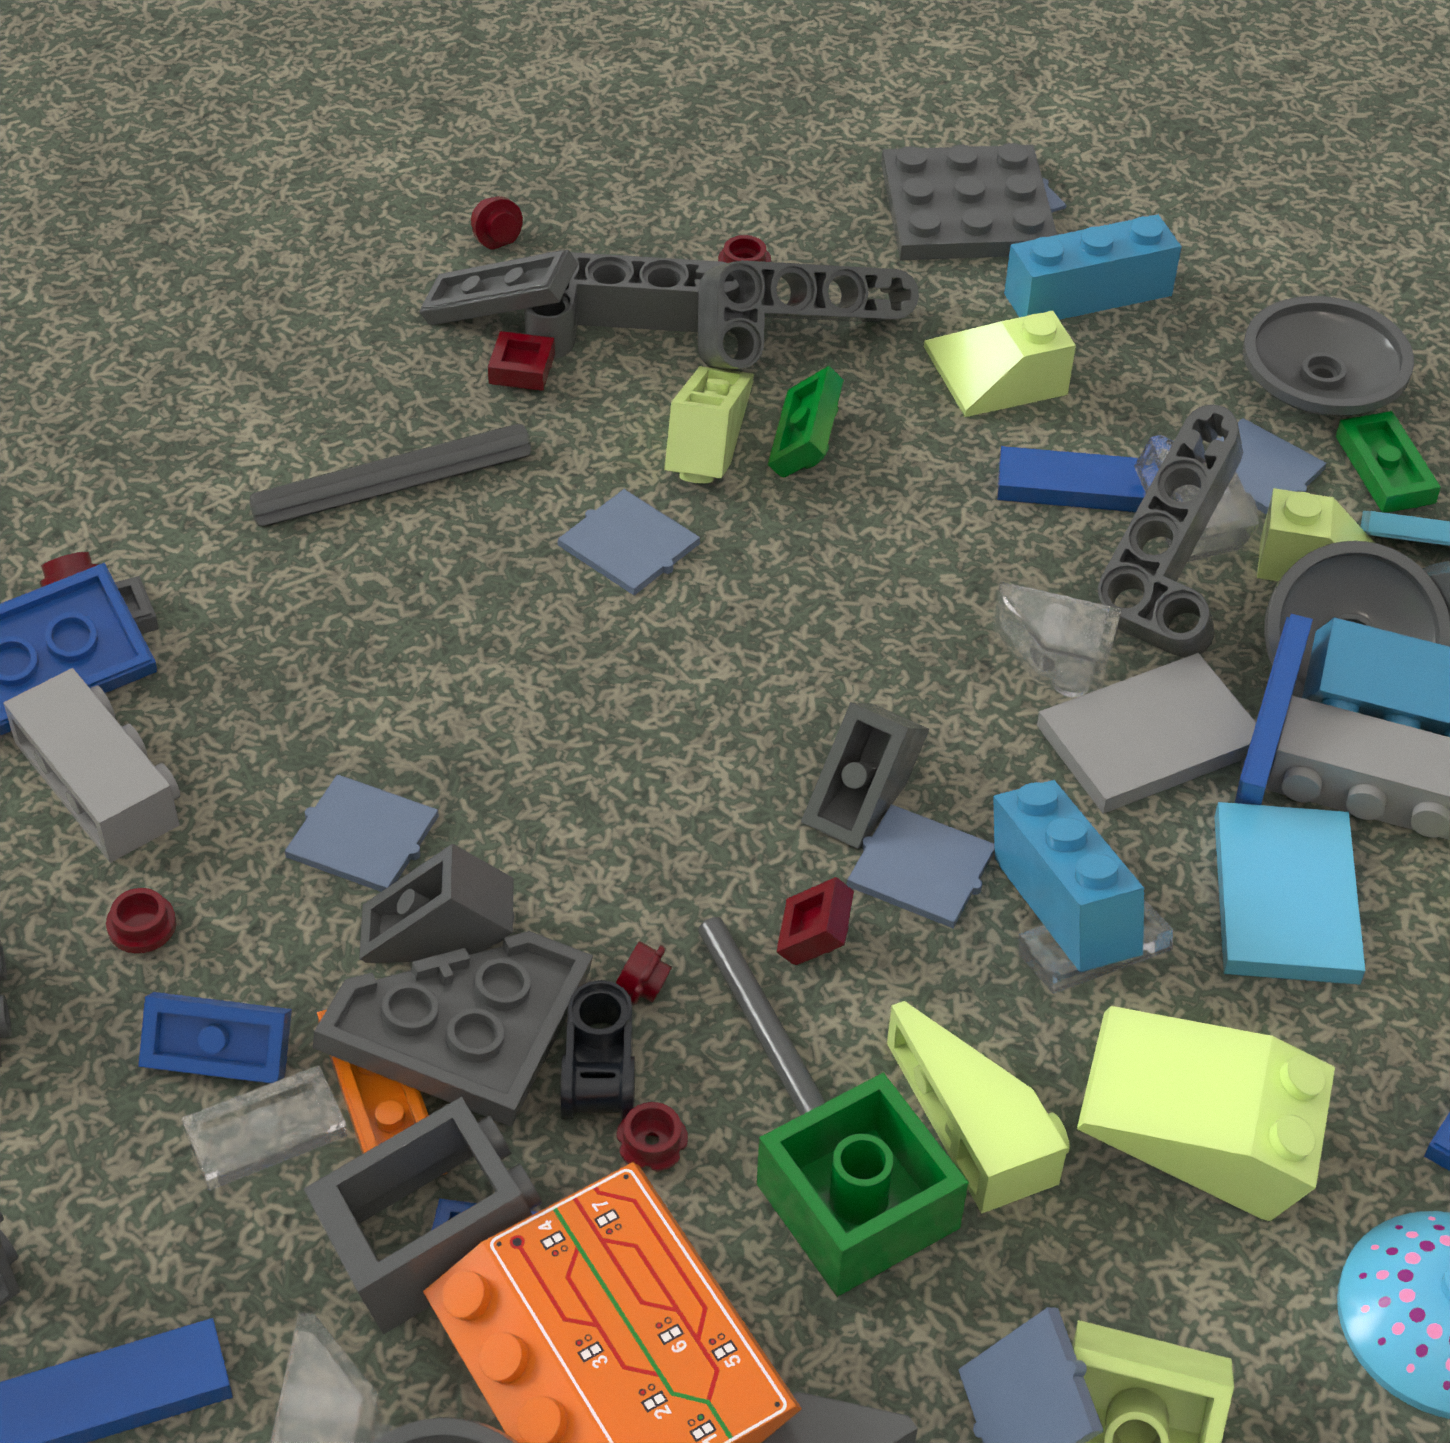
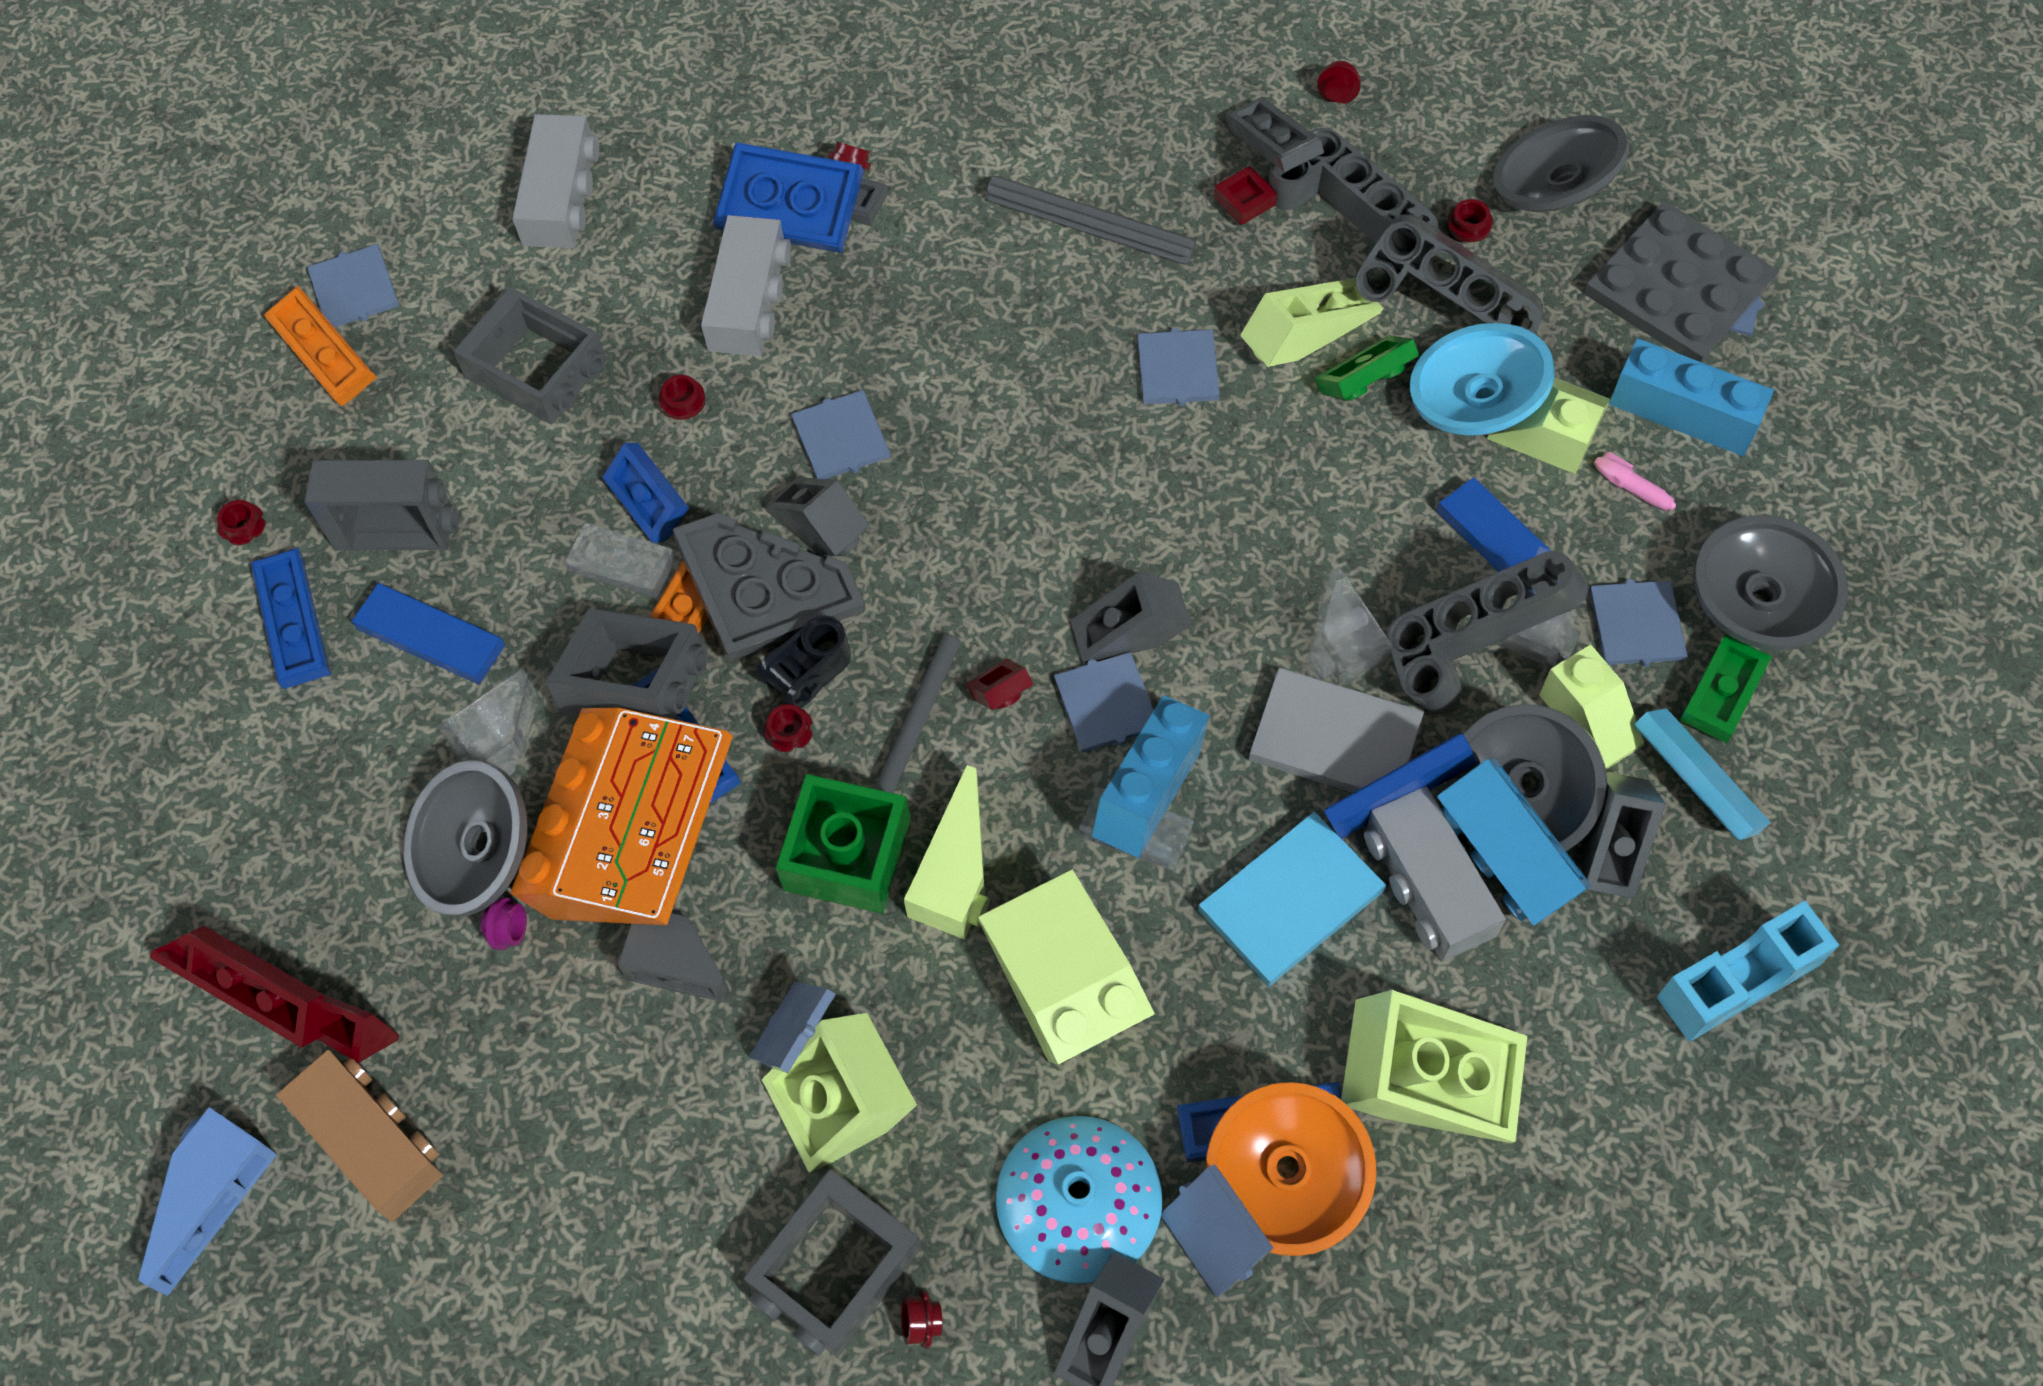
camera: 50 degrees right, 15 degrees up
(644, 973) = (882, 635): dark red plate -> none
(777, 163) = (1561, 163): none -> dark grey dish
(924, 359) = (1482, 379): none -> medium azure dish
(1109, 368) = (1622, 475): none -> bright pink piece

